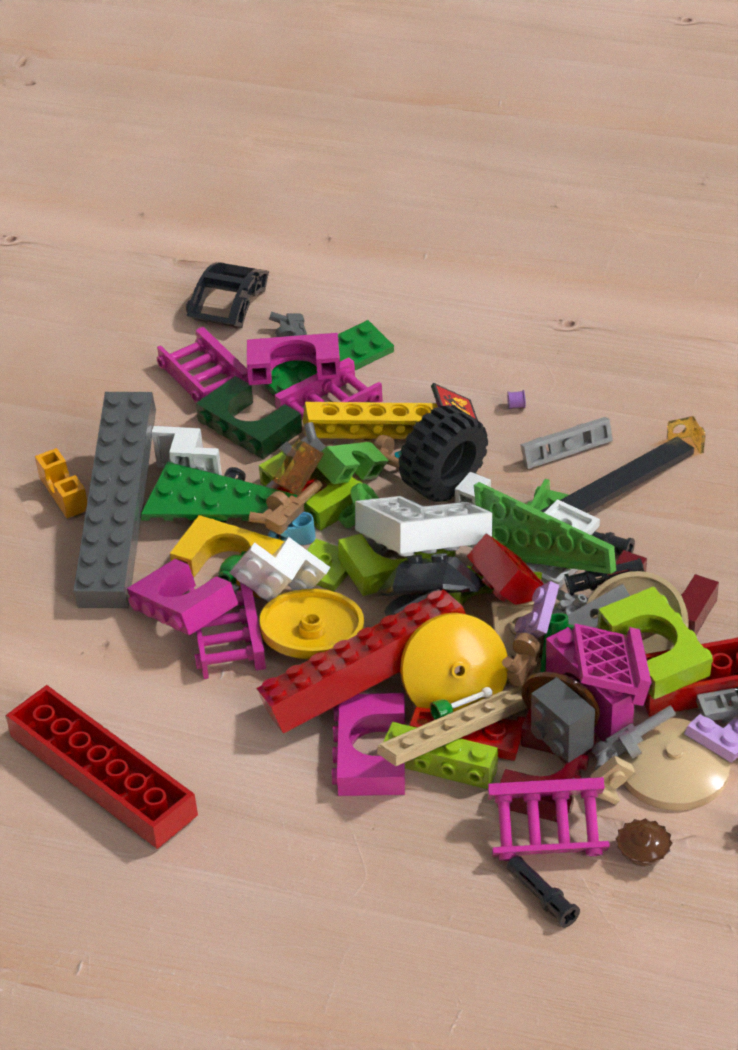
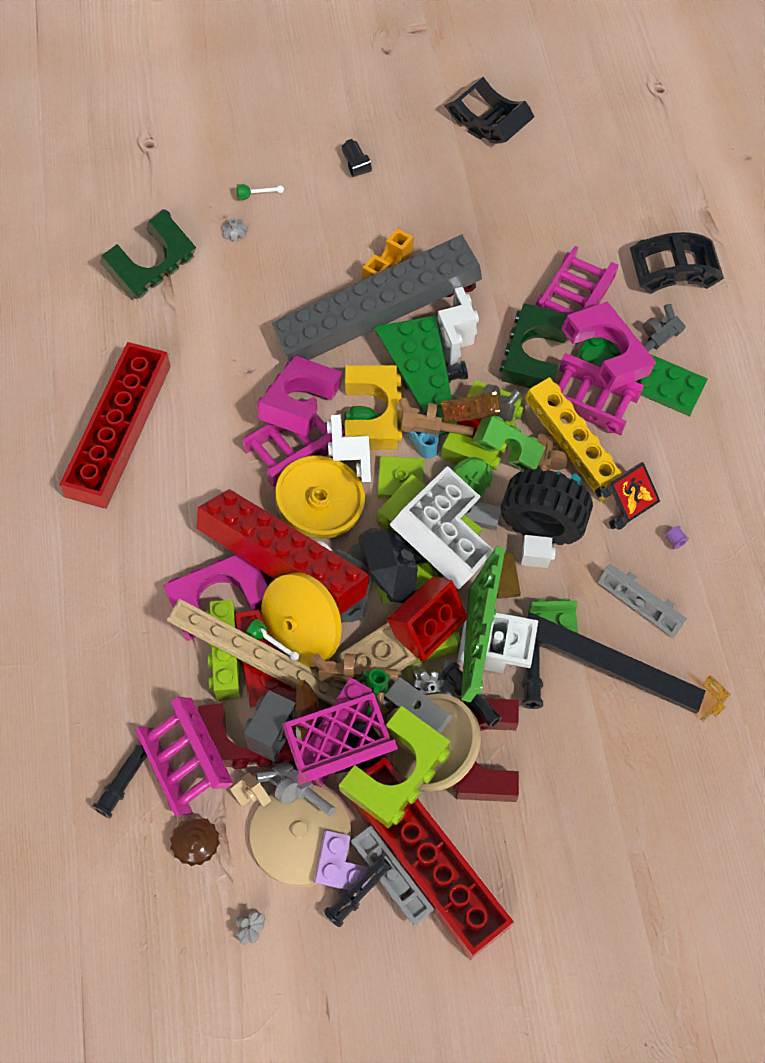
camera: 60 degrees right, 20 degrees up
(538, 619) = (376, 659): lavender plate -> none

